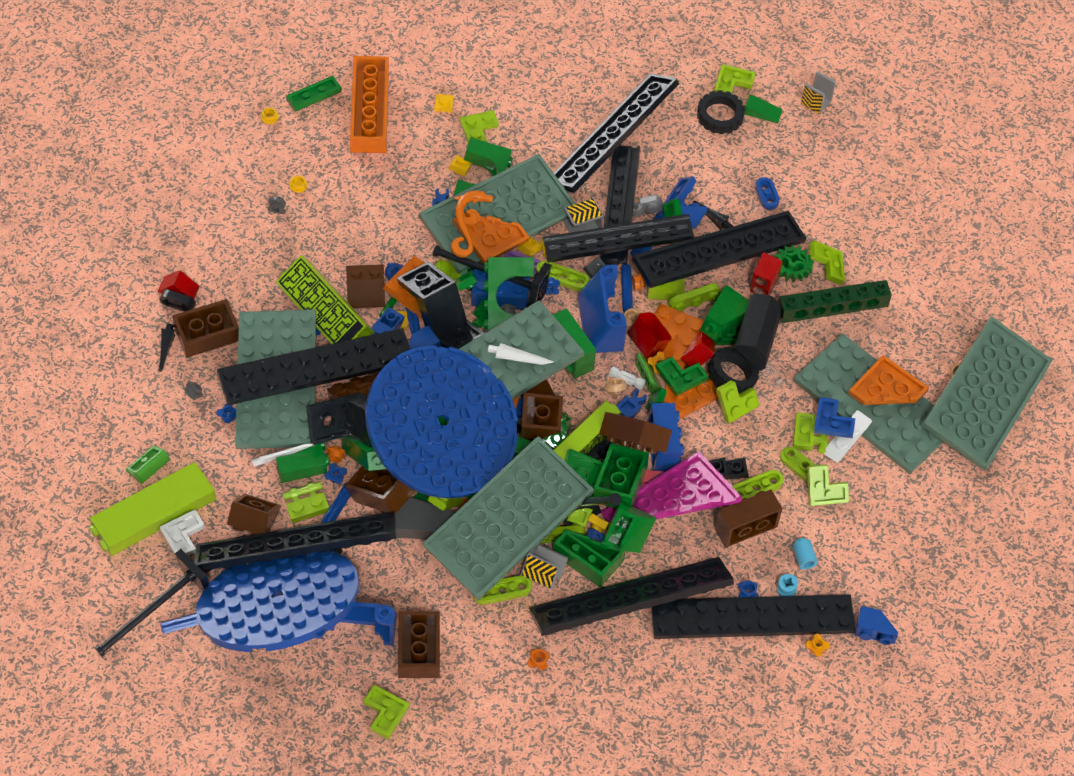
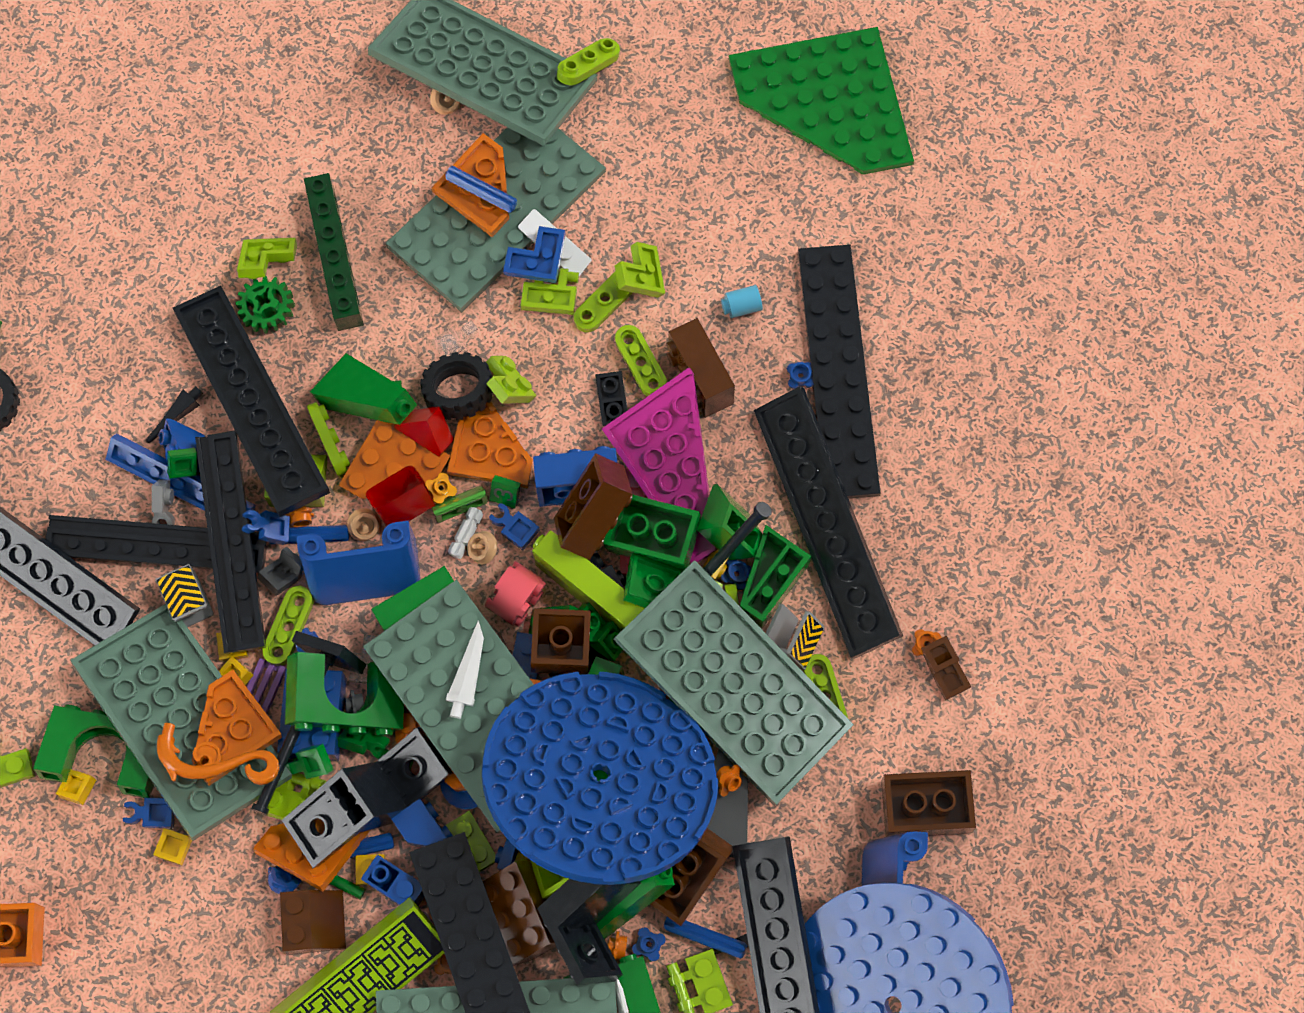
camera: 85 degrees left, 15 degrees up
(390, 710) = (1027, 838): lime plate -> none
(413, 215) = (172, 846): none -> yellow plate
(441, 510) = (728, 779): none -> orange plate
(519, 668) = (945, 668): none -> reddish brown slope
(580, 399) = (514, 594): none -> coral brick
(626, 263) = (269, 525): none -> blue plate
(679, 379) = (477, 455): green plate -> none
(759, 329) = (392, 347): black piece -> none
(768, 269) = (296, 332): red piece -> none
(769, 194) = (137, 334): blue plate -> none
(791, 587) = (792, 331): medium azure wheel -> none
(817, 651) = (875, 298): light orange plate -> none
(875, 626) = (842, 220): blue slope -> none
(881, 382) = (481, 189): none -> axle
(982, 627) = (829, 95): none -> green plate
(991, 454) = (588, 61): none -> lime plate

